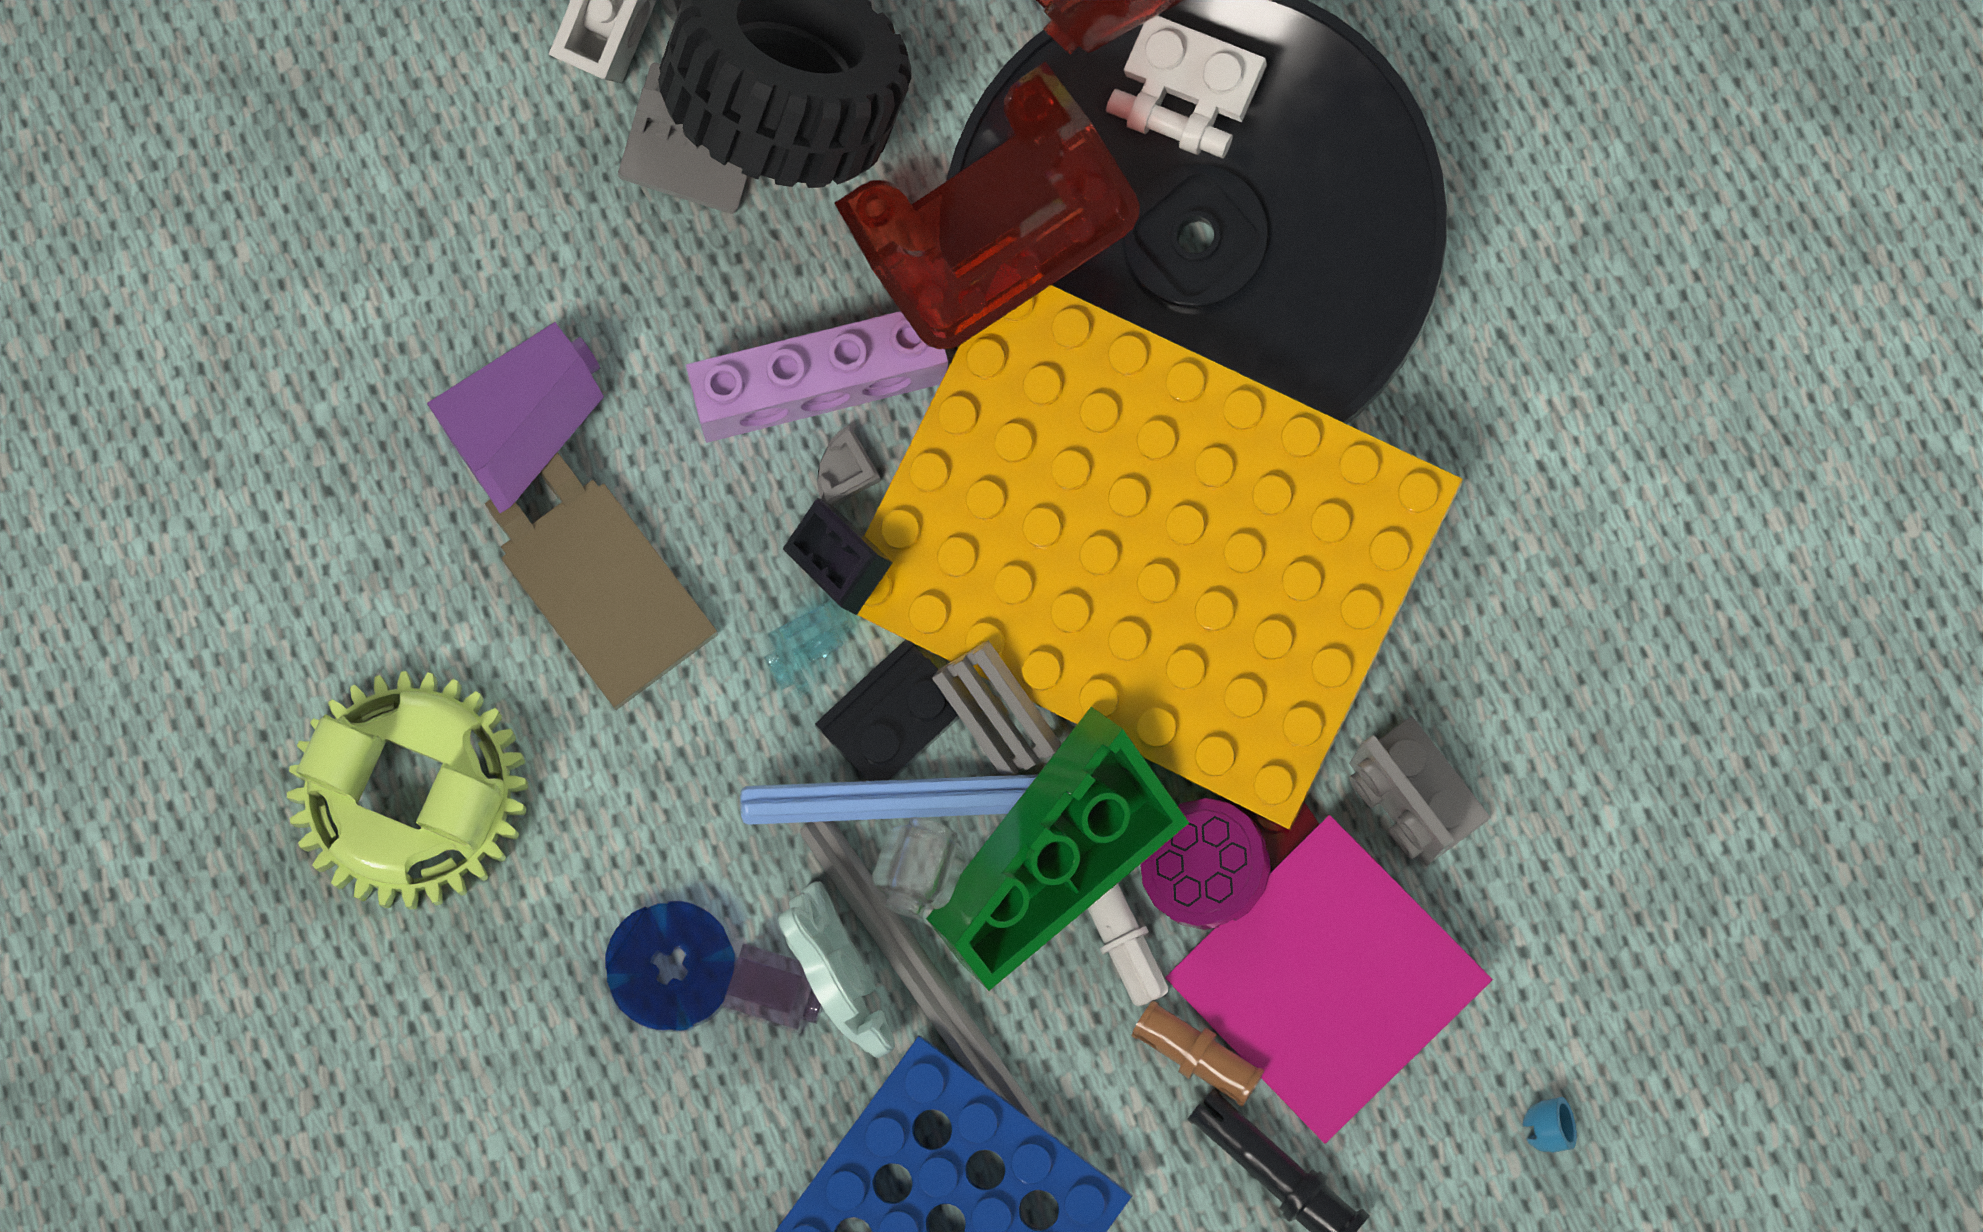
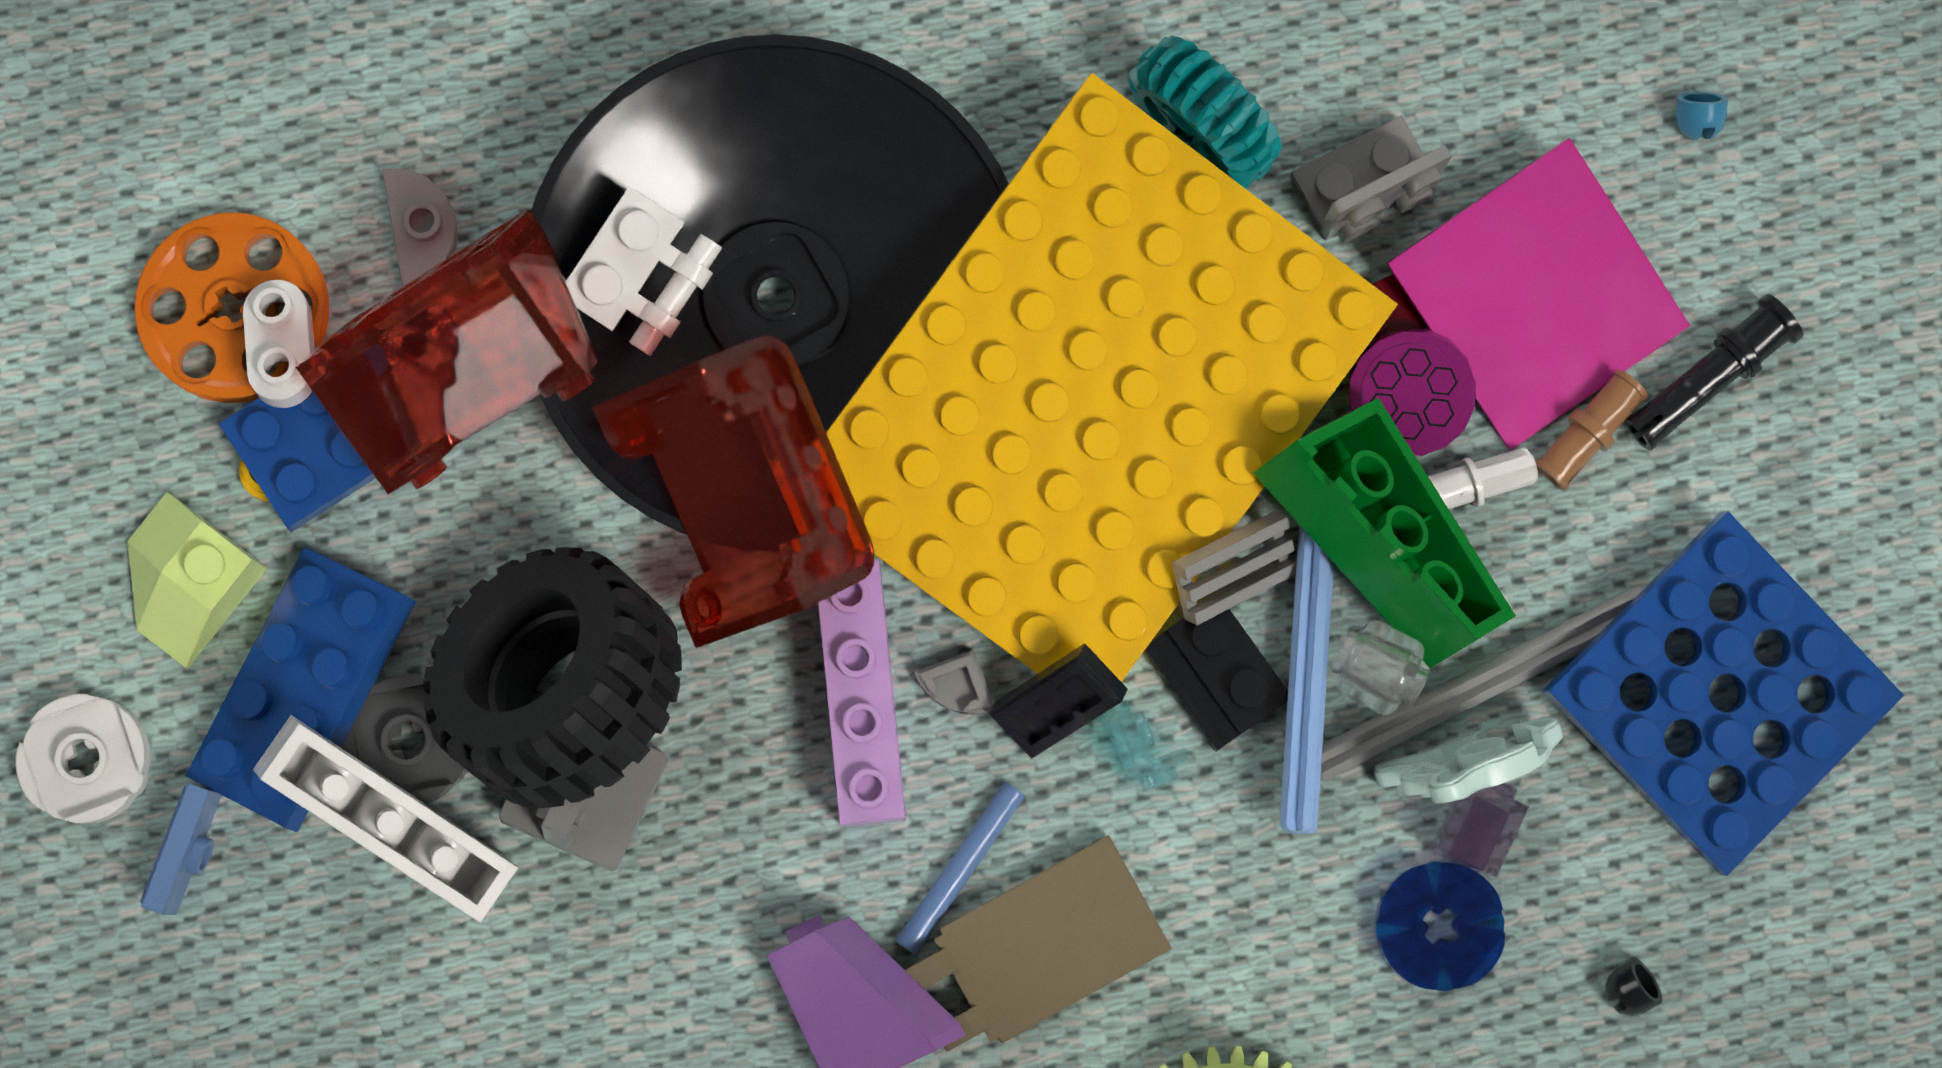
camera: 80 degrees left, 5 degrees up
(623, 1166) = (1634, 987): none -> black hinge
(666, 498) = (960, 868): none -> medium blue bar
(1450, 611) = (1206, 108): none -> teal gear

